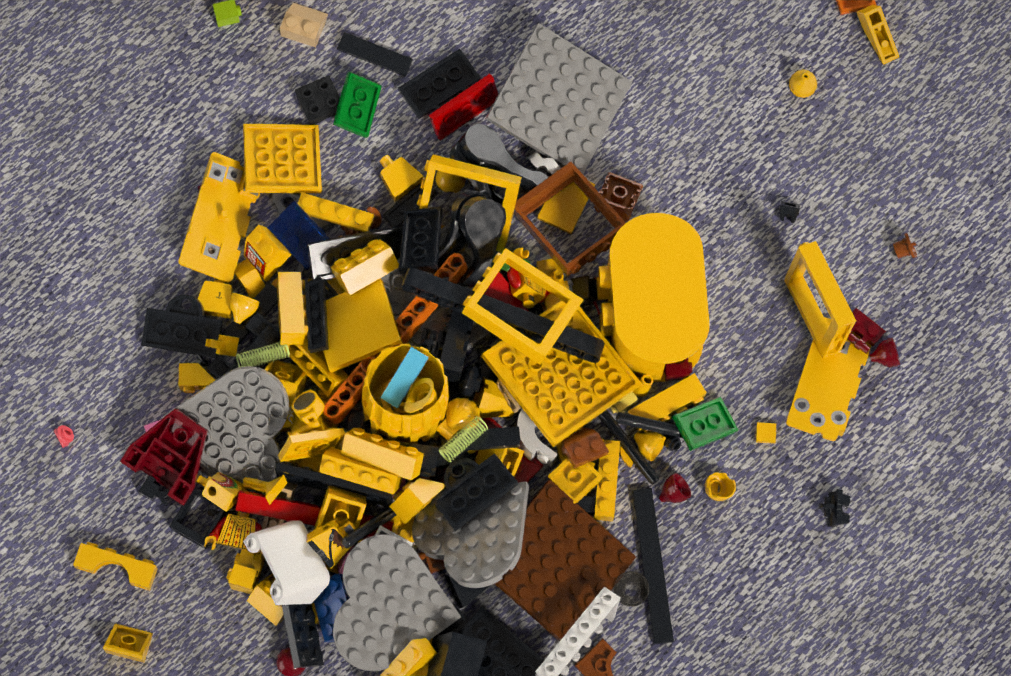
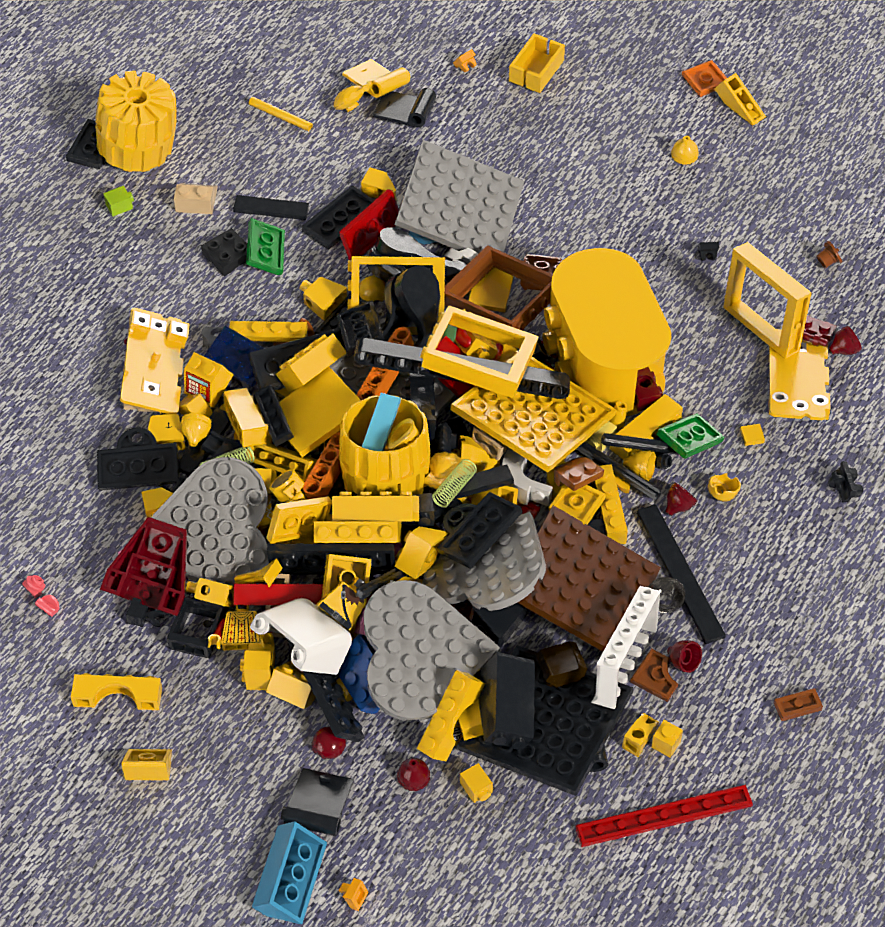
camera: 10 degrees left, 20 degrees down
(72, 461) = (48, 604): none -> coral plate
(225, 345) = (183, 464): yellow plate -> none
(282, 158) = (202, 301): yellow tile -> none
(485, 54) = (376, 183): none -> yellow slope
(514, 640) = (561, 664): none -> dark brown slope
(629, 656) = (685, 655): none -> dark red helmet

